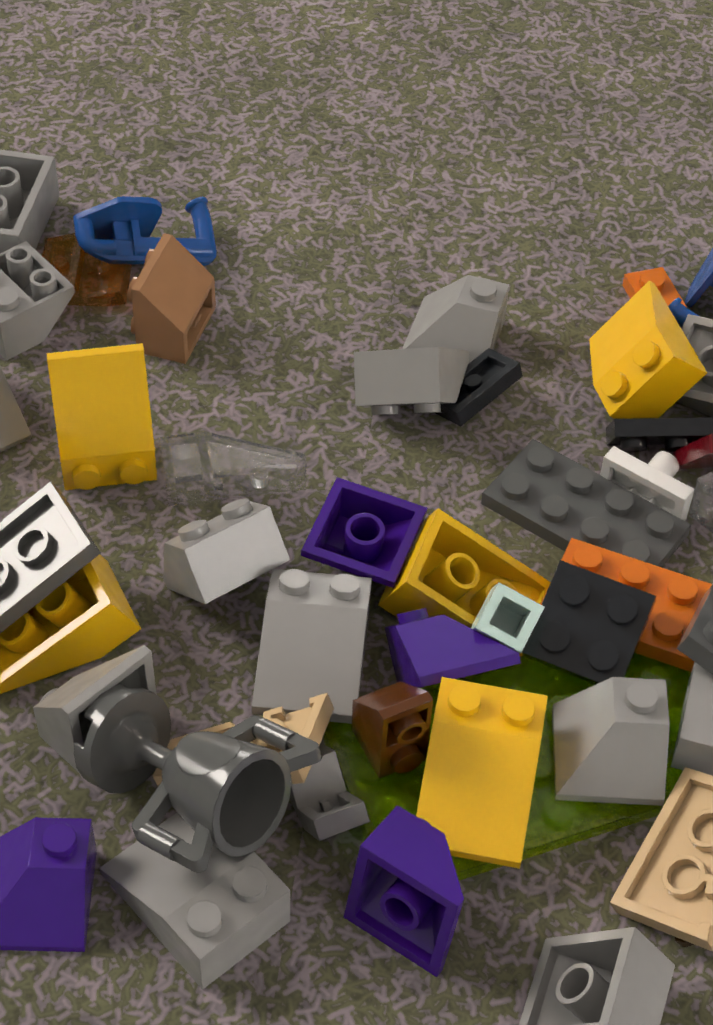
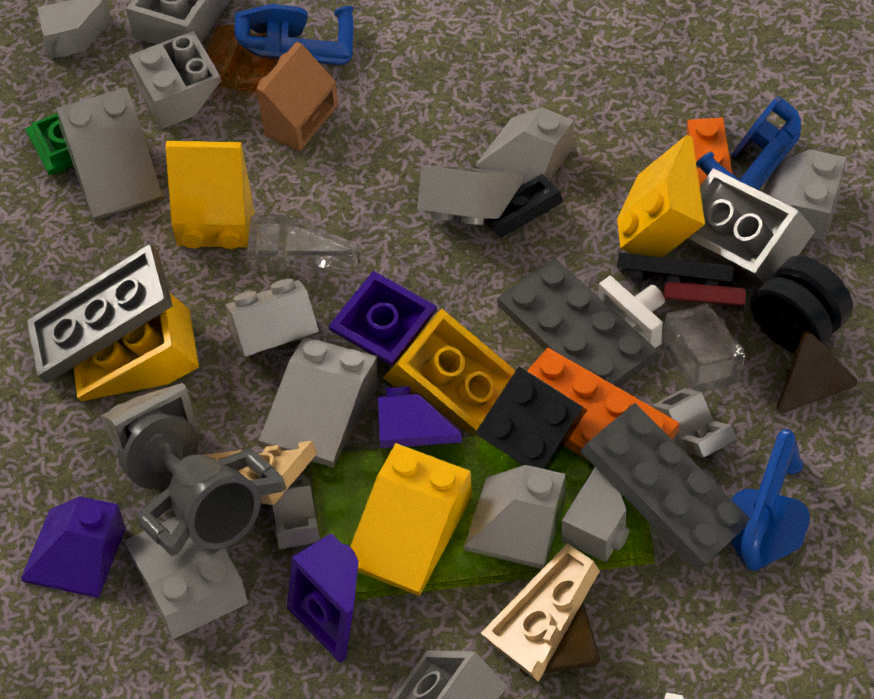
camera: 20 degrees right, 5 degrees up
(393, 727) = (351, 475): reddish brown slope -> none
(507, 617) = (464, 406): light aqua brick -> none

